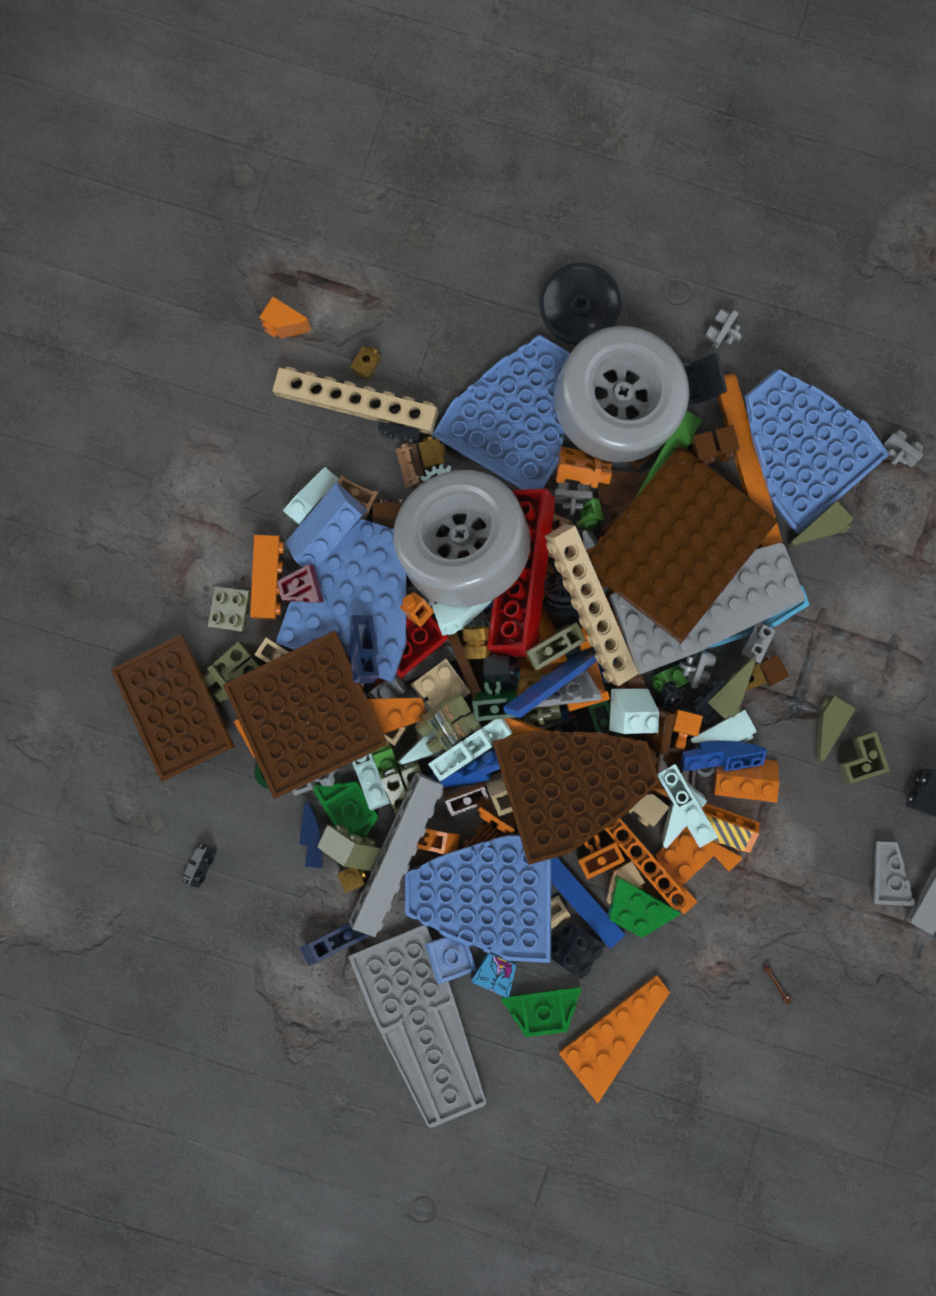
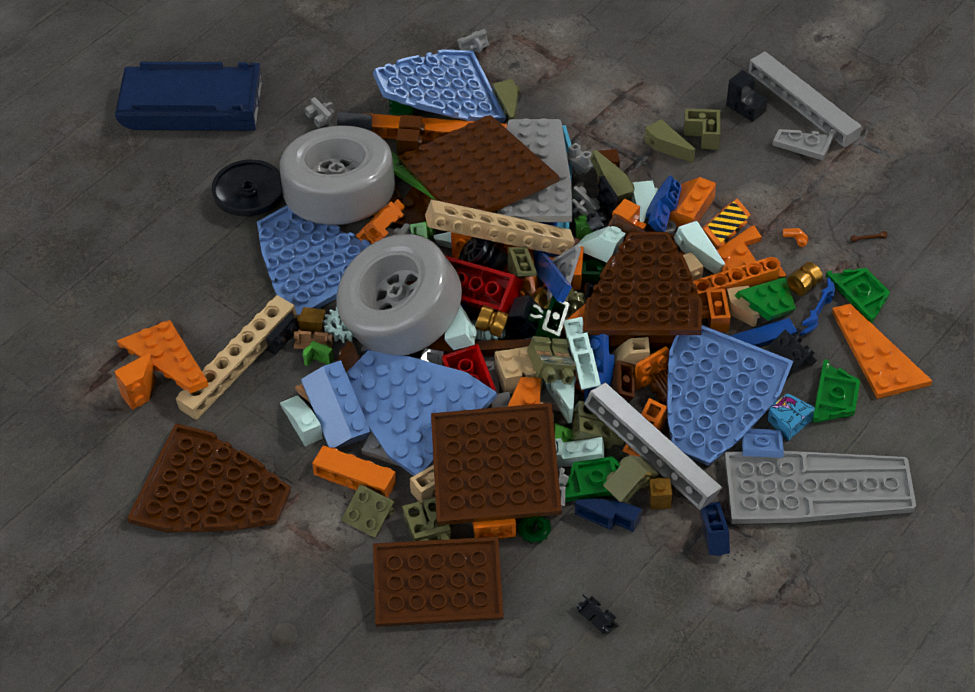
camera: 65 degrees left, 35 degrees down
(200, 445) = (207, 487): none -> reddish brown wing
(301, 586) = (378, 436): wing -> none
(336, 323) = (167, 355): none -> orange wing
(363, 649) = (459, 395): dark blue slope -> none
(366, 362) = (208, 342): pearl gold brick -> none
(397, 482) = (318, 352): none -> bright green bracket
(412, 604) = (442, 352): orange brick -> none
(626, 961) = (827, 296): none -> blue piece
(682, 936) = (804, 278): none -> pearl gold wheel
(685, 176) = (189, 96): none -> dark blue piece
(687, 805) = (695, 230): light aqua slope -> none
(692, 999) = (861, 290): none -> green wing
(748, 908) = (798, 234): none -> orange arm

